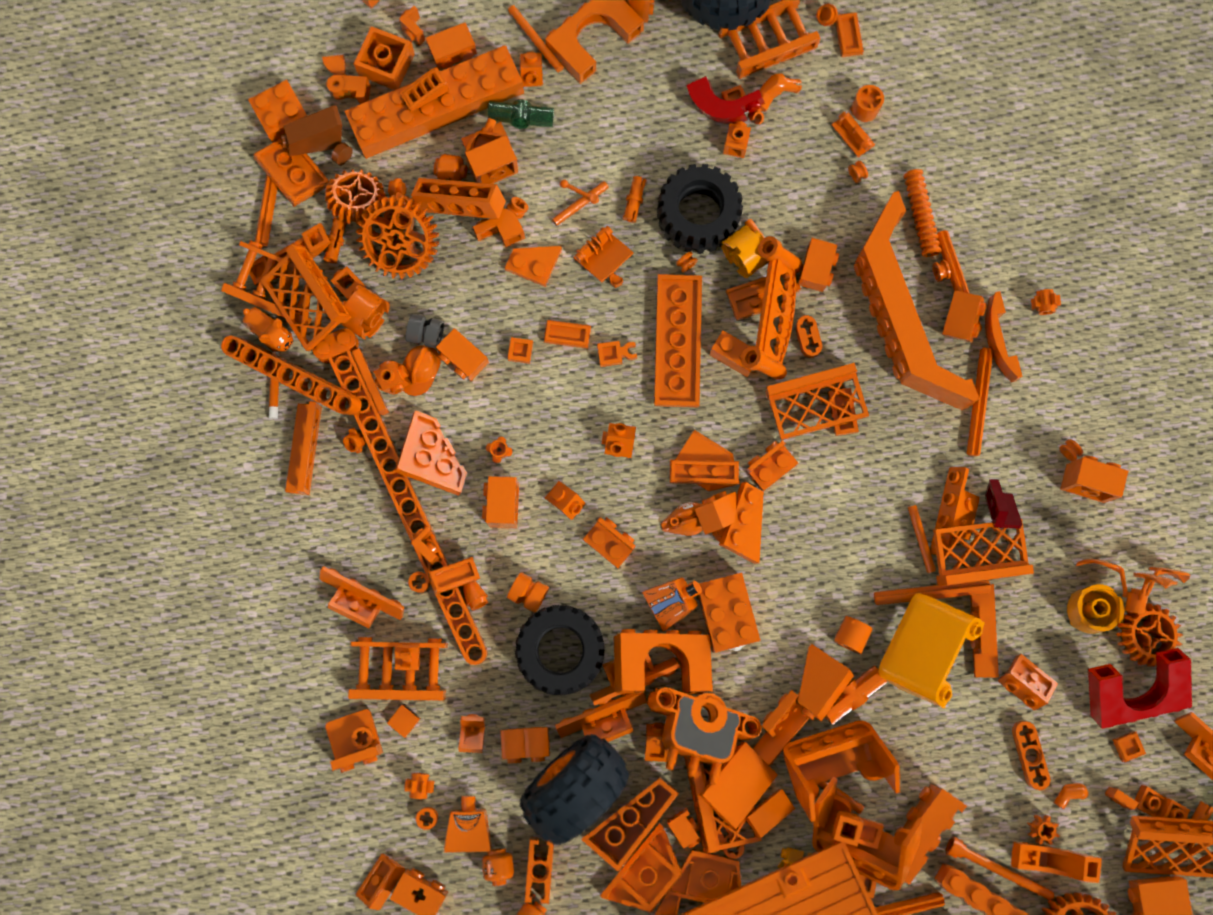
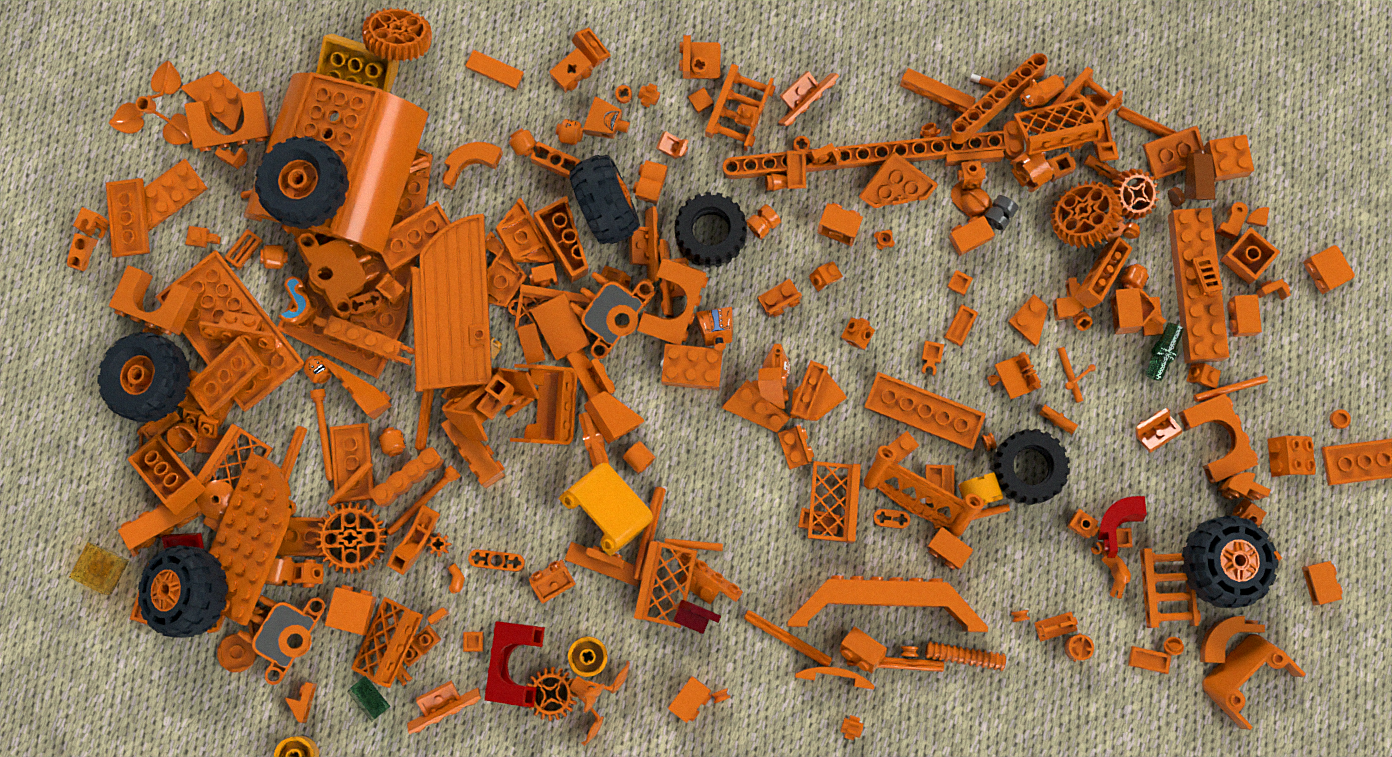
camera: 115 degrees right, 0 degrees up
(610, 95) = (1157, 430): none -> orange bracket

